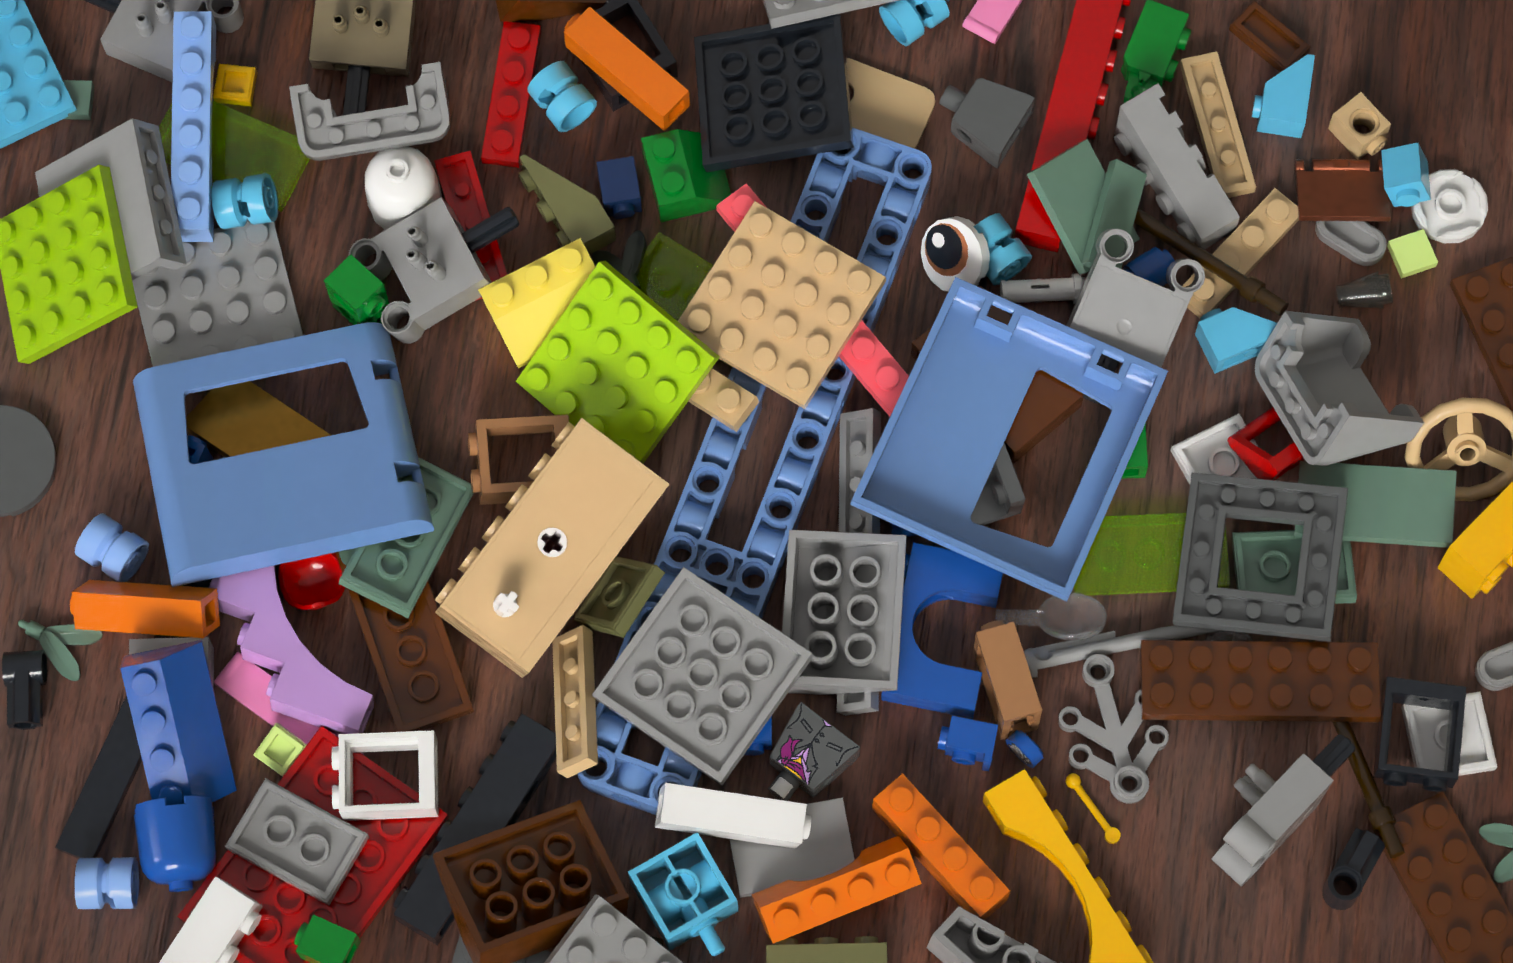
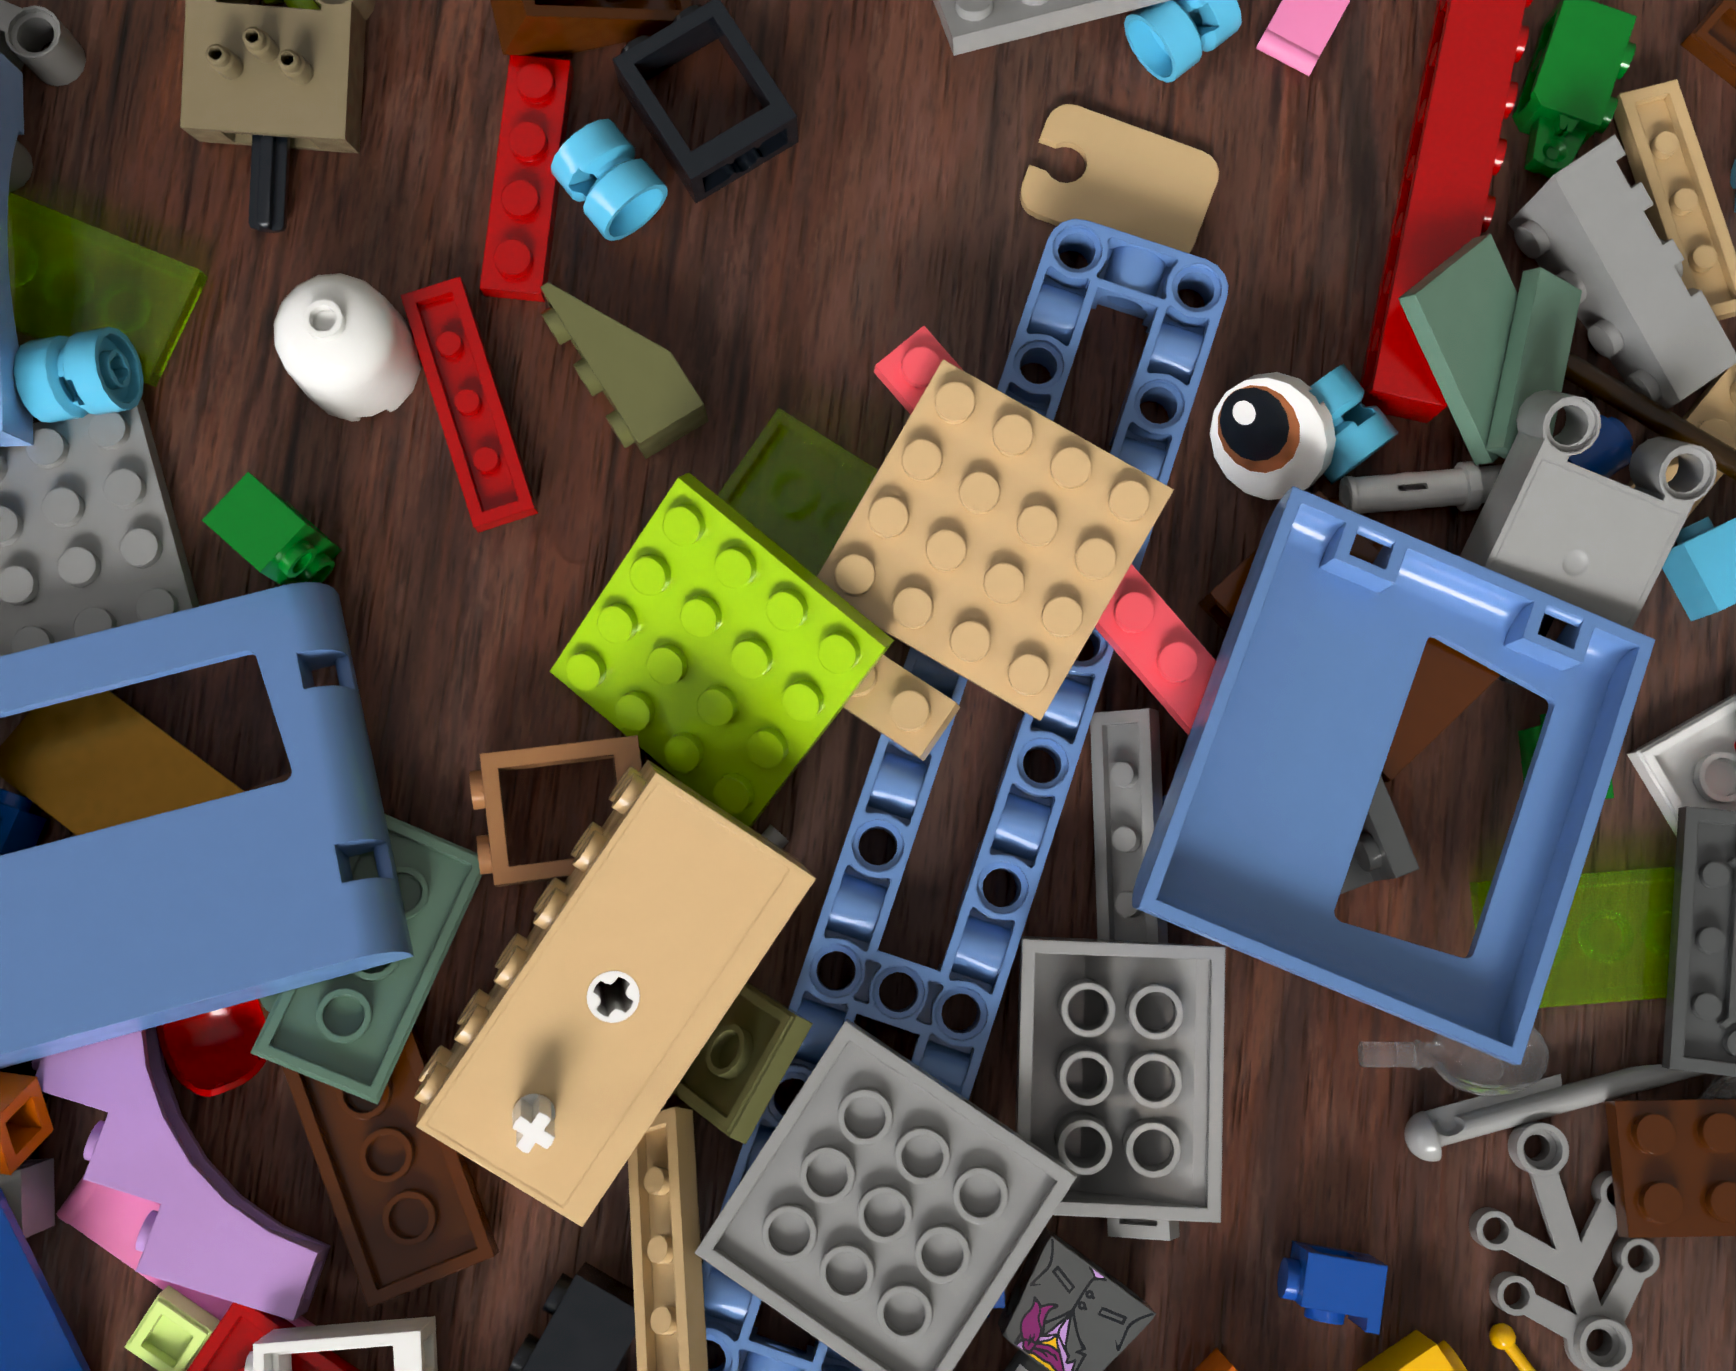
camera: 10 degrees left, 10 degrees up
(235, 85) = (71, 173): yellow tile -> none
(330, 137) = (204, 254): light grey windscreen -> none
(433, 264) = (399, 476): light grey piece -> none
(535, 297) = (576, 531): light yellow slope -> none
(619, 187) = (709, 333): dark blue brick -> none
(626, 68) = (713, 128): orange brick -> none
(632, 257) = (731, 471): pearl dark grey piece -> none
(678, 175) = (818, 306): green slope -> none
(773, 93) = (959, 167): black plate -> none
(931, 577) = (1265, 1184): blue arch -> none
(988, 117) = (1310, 199): dark grey torso -> none
(1006, 678) = (1400, 1187): medium nougat window -> none
(1024, 748) = (1426, 1292): blue tile -> none

